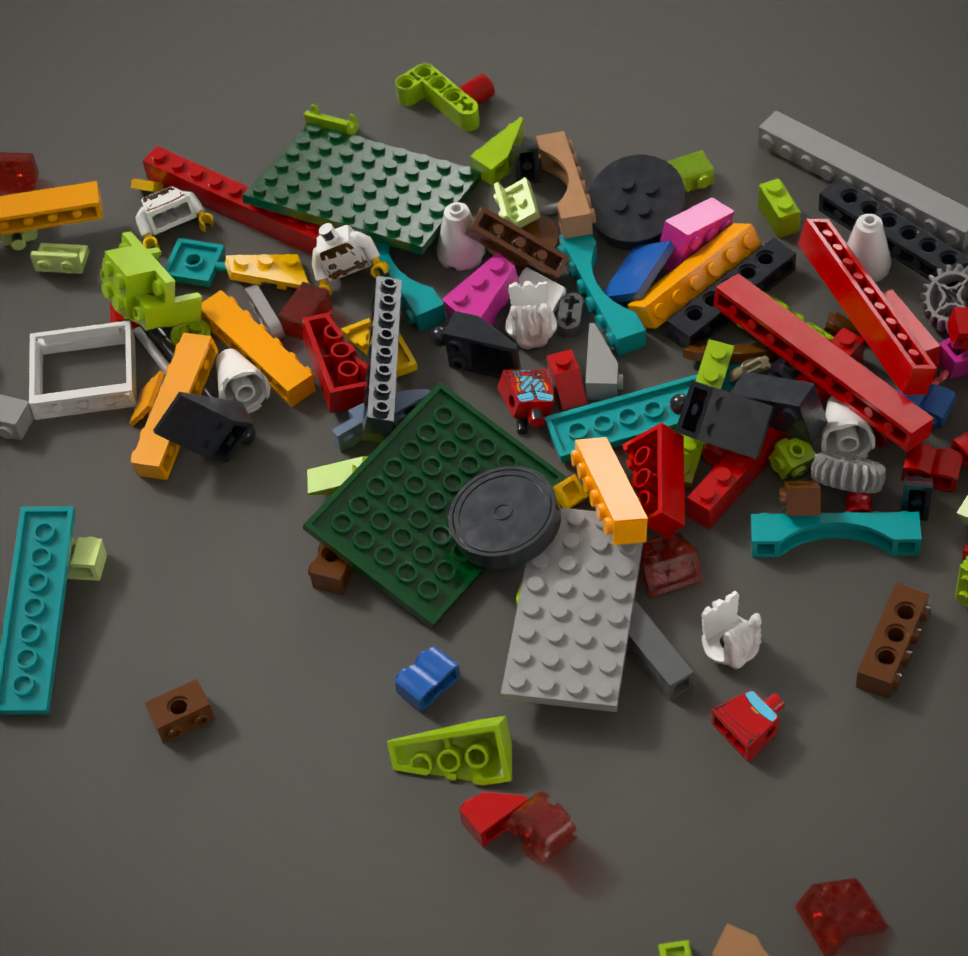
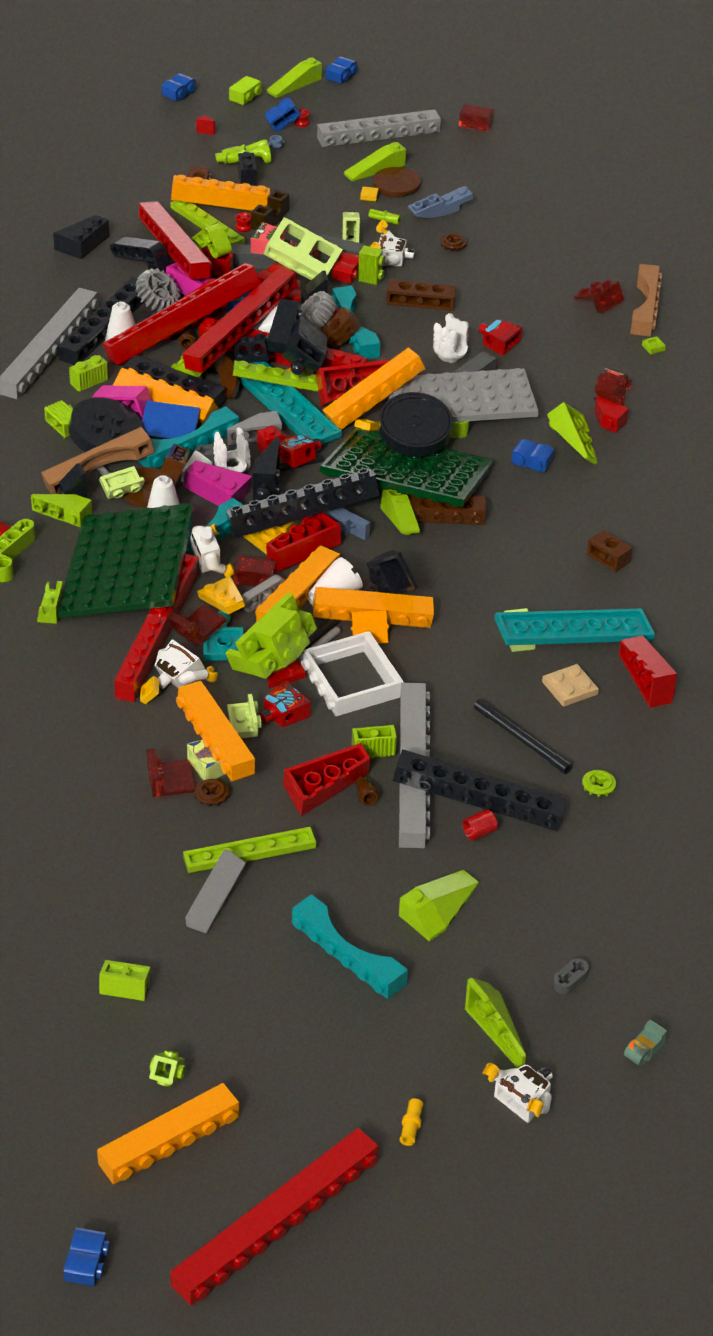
camera: 115 degrees left, 10 degrees down
(62, 297) = (285, 706): none -> red torso
(218, 227) = (198, 625): none -> clear red bracket
(752, 366) = (253, 348): dark tan axle -> none

